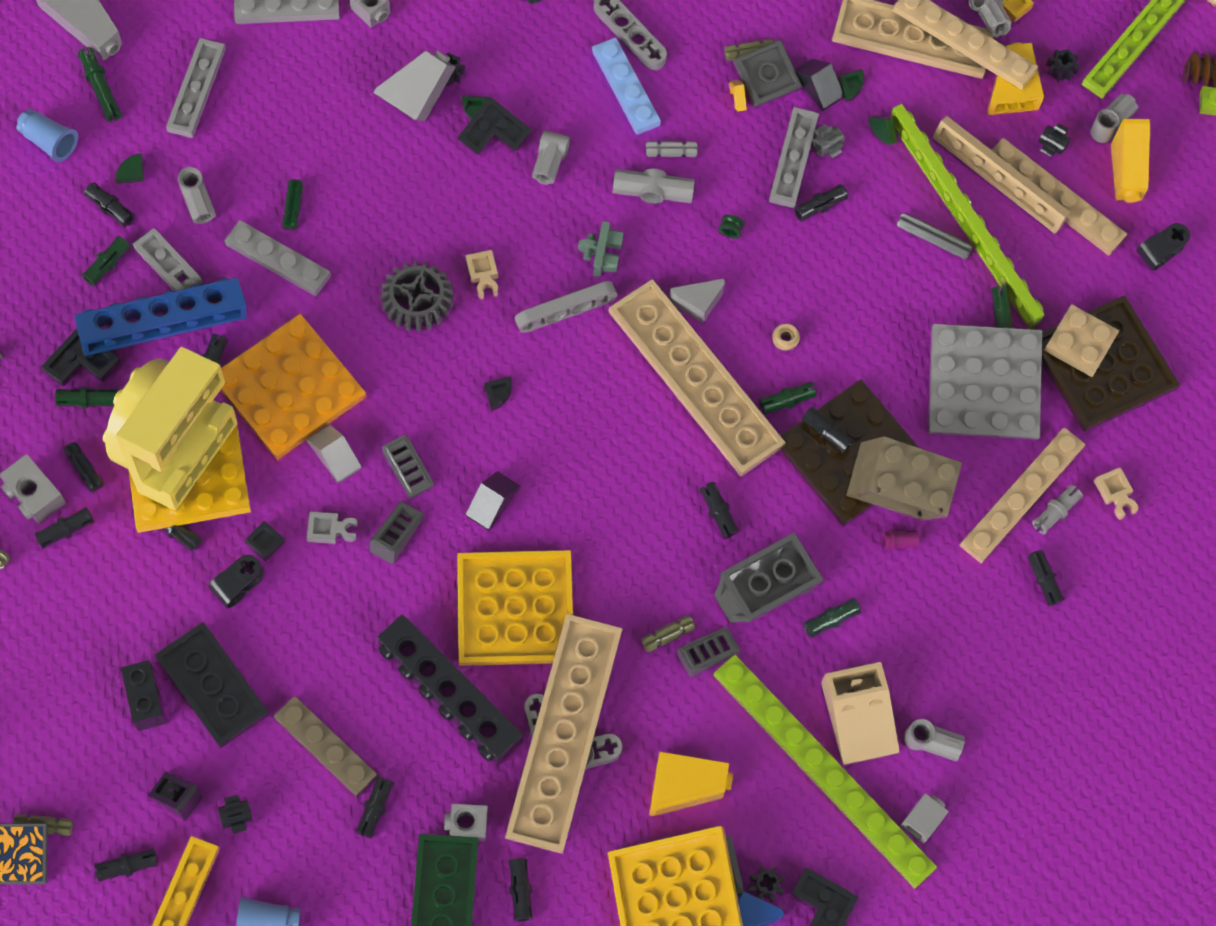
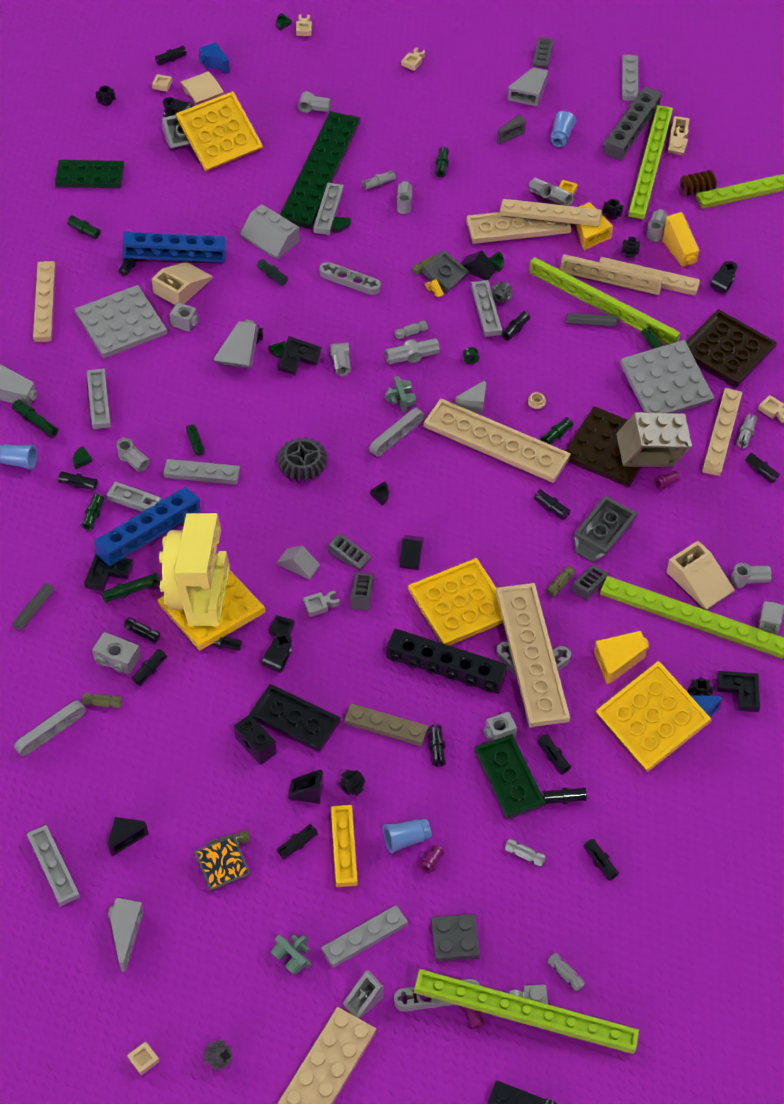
camera: 20 degrees left, 15 degrees down
(289, 386) = (254, 536): light orange plate -> none
(483, 270) = (335, 431): tan plate -> none
(626, 86) = (364, 307): light blue plate -> none
(827, 429) = (592, 435): black axle -> none
(832, 617) = (652, 535): pin -> none
(883, 128) = (529, 276): dark green tile -> none
(1081, 340) = (708, 339): tan plate -> none

